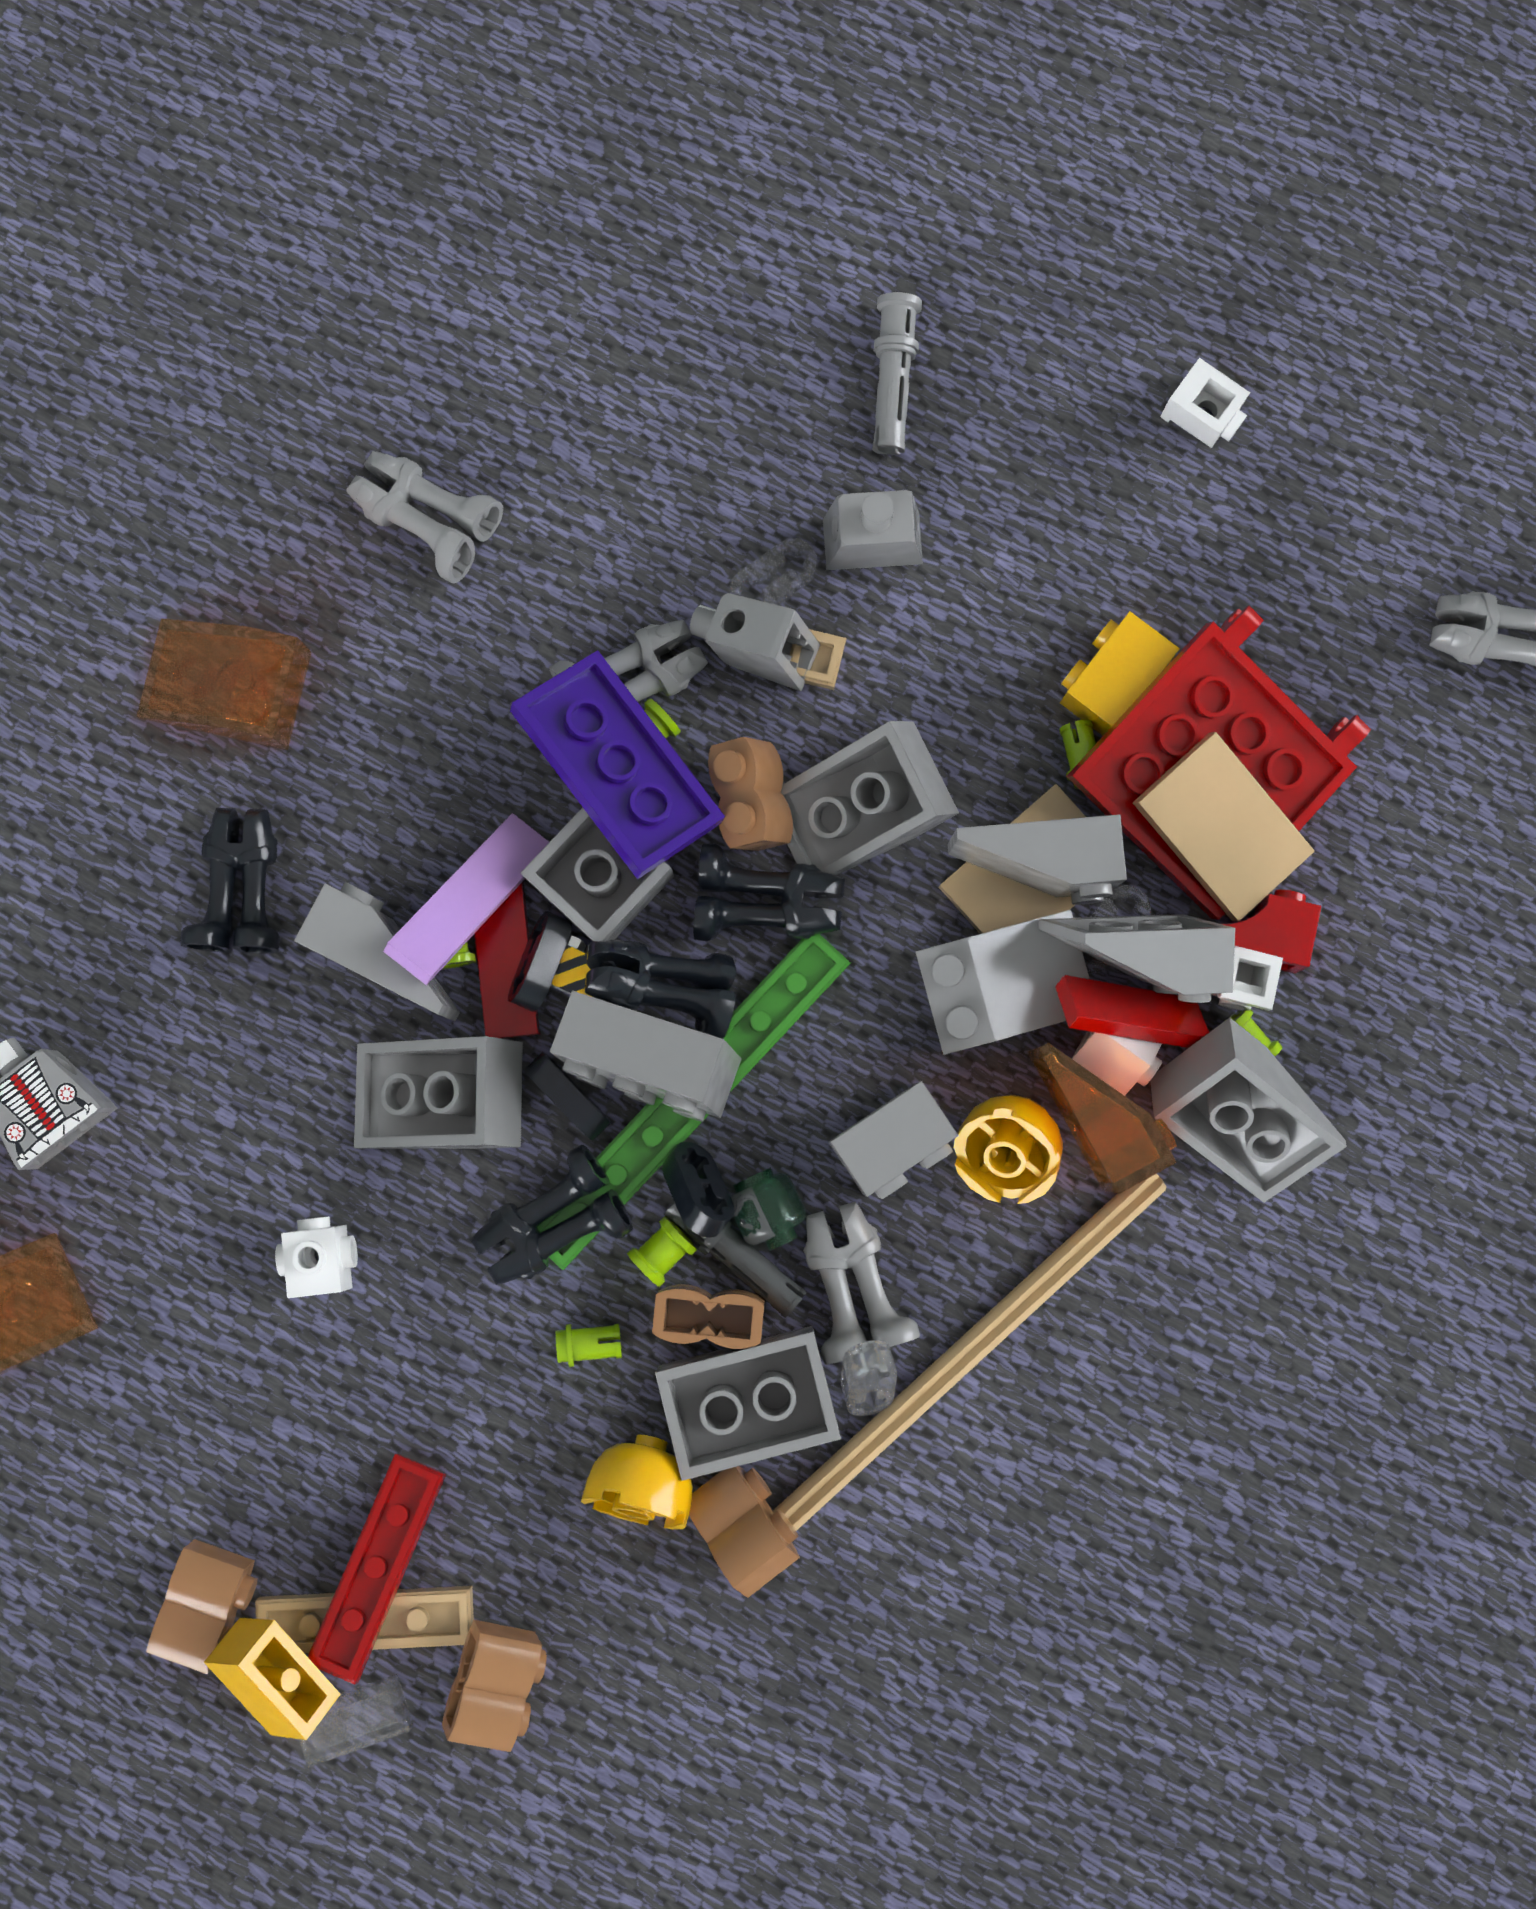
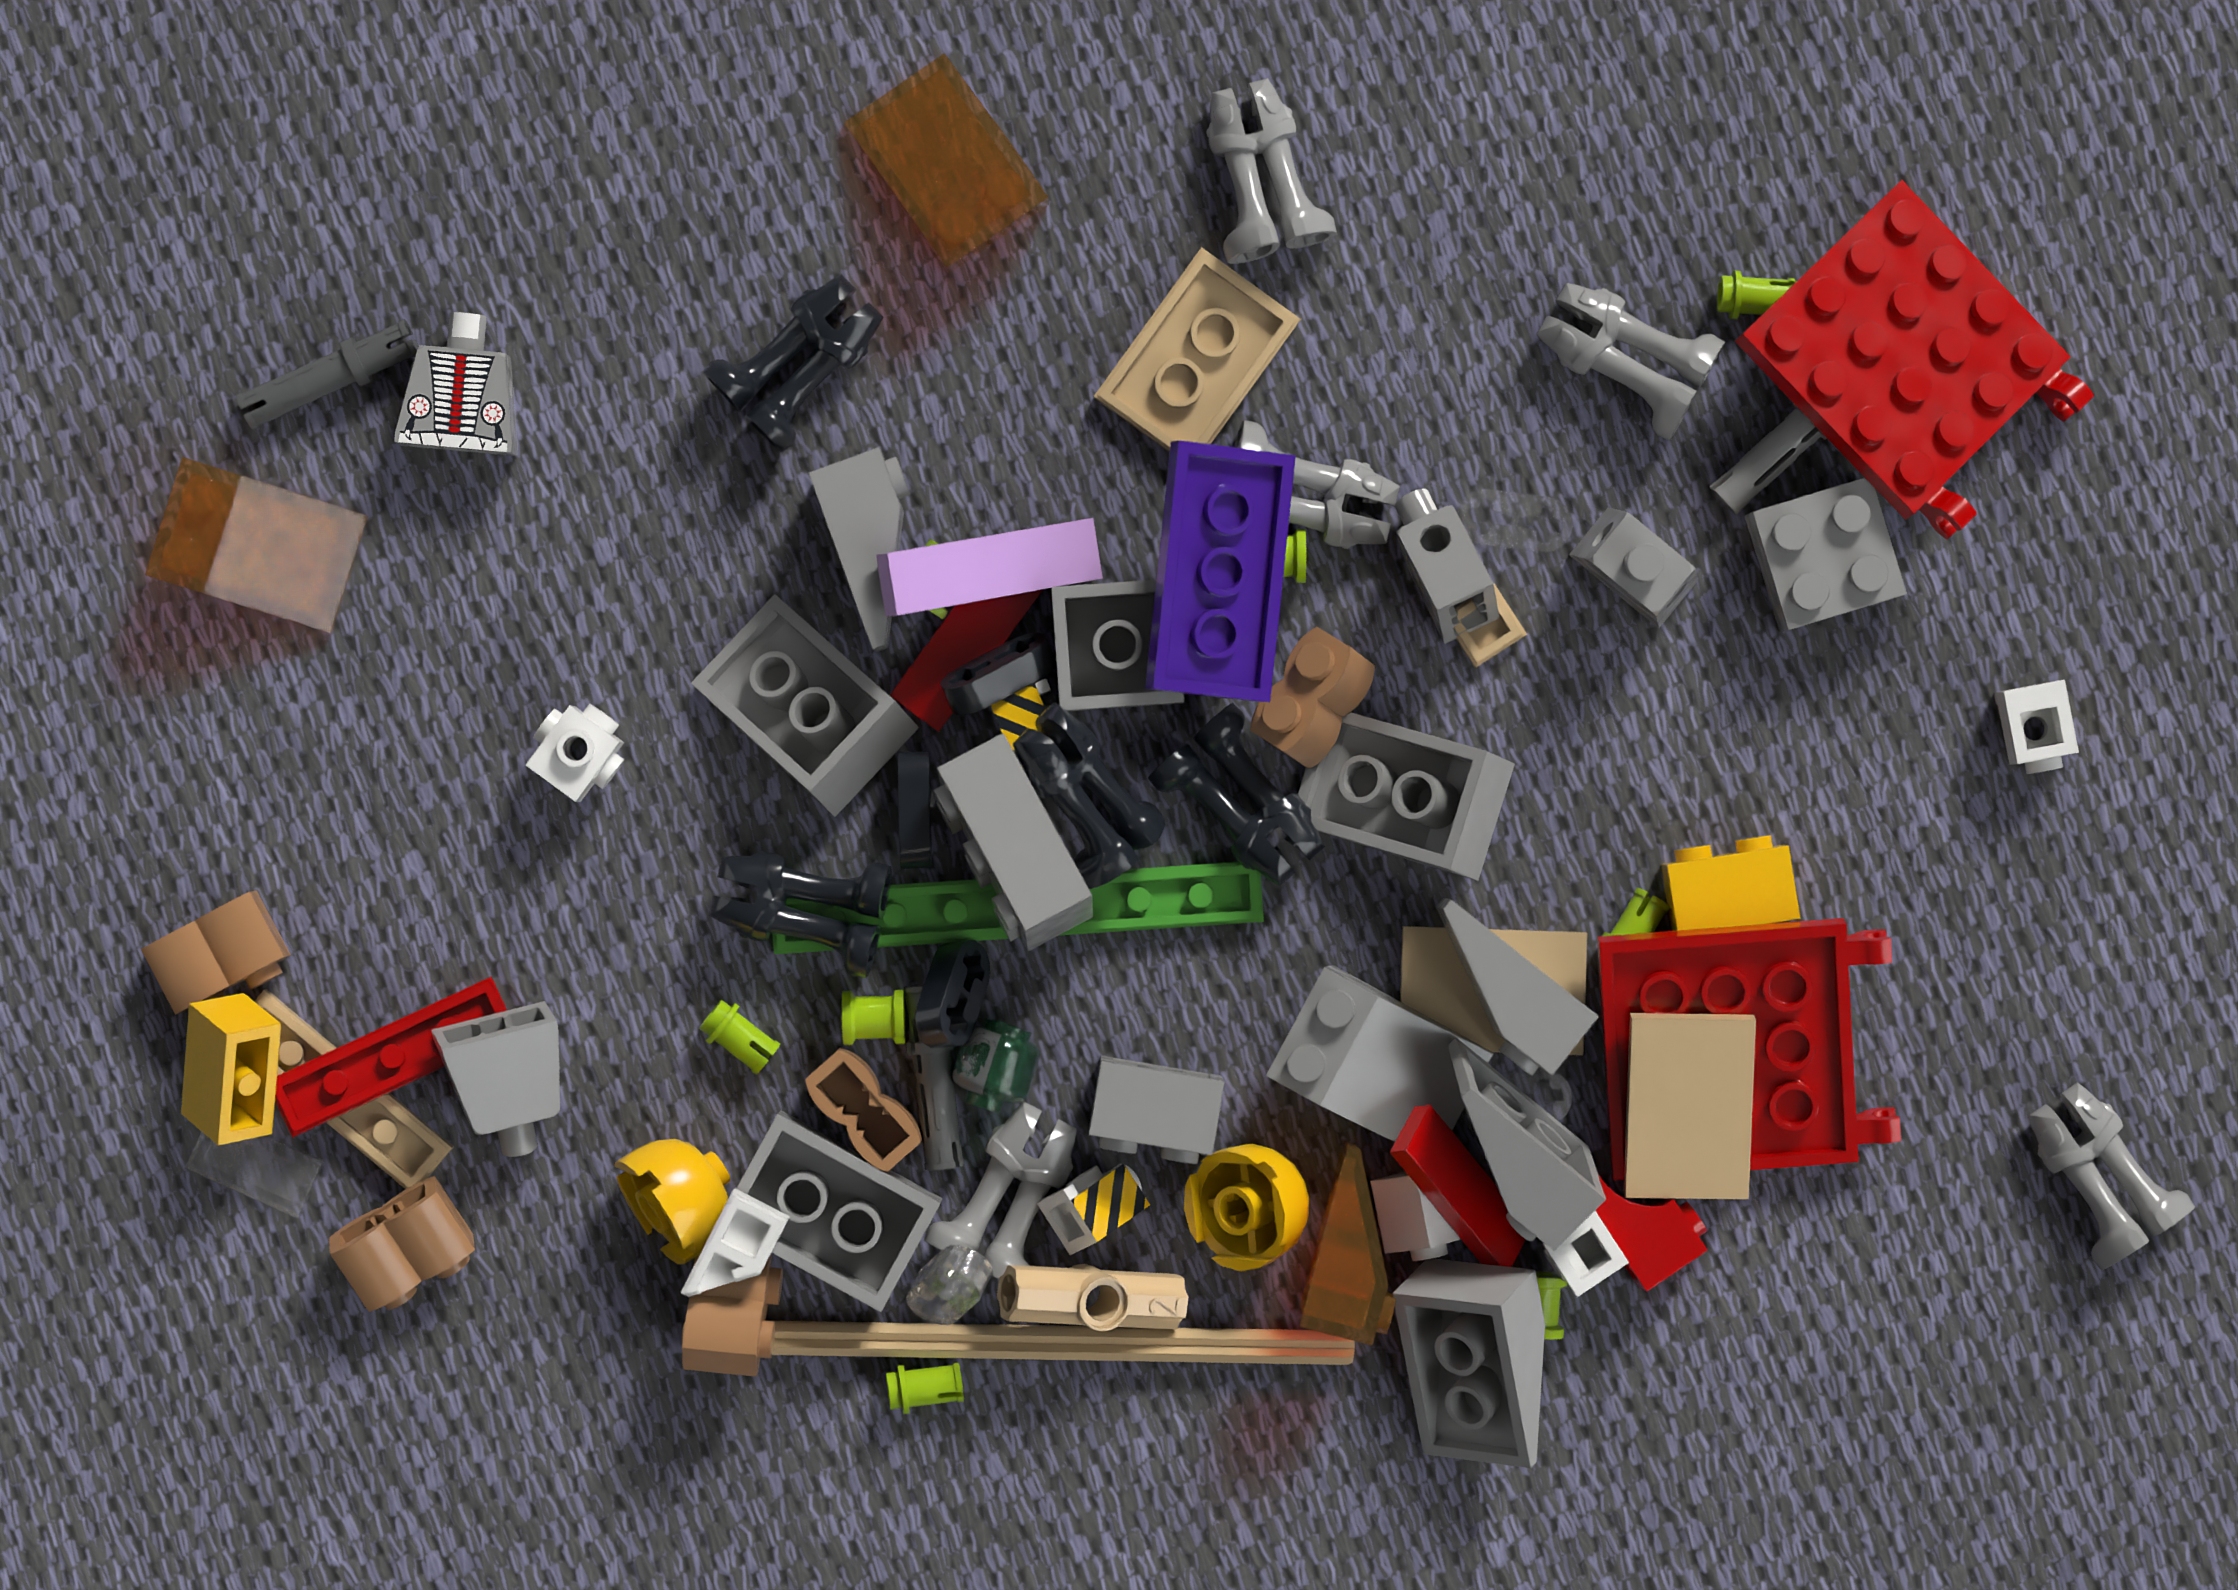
camera: 40 degrees right, 5 degrees up
(456, 1512) = (505, 1072): none -> light grey torso
(483, 655) = (1197, 355): none -> tan tile
(706, 1483) = (737, 1244): none -> white tile
(714, 429) = (1610, 323): none -> light grey piece
(792, 311) = (1749, 294): none -> lime pin
(912, 1240) = (1093, 1206): none -> brick
(913, 1458) = (924, 1386): none -> lime pin
(920, 257) = (1909, 355): none -> red plate
(946, 1319) = (1061, 1296): none -> tan piece
(981, 420) = (1825, 554): none -> light grey brick

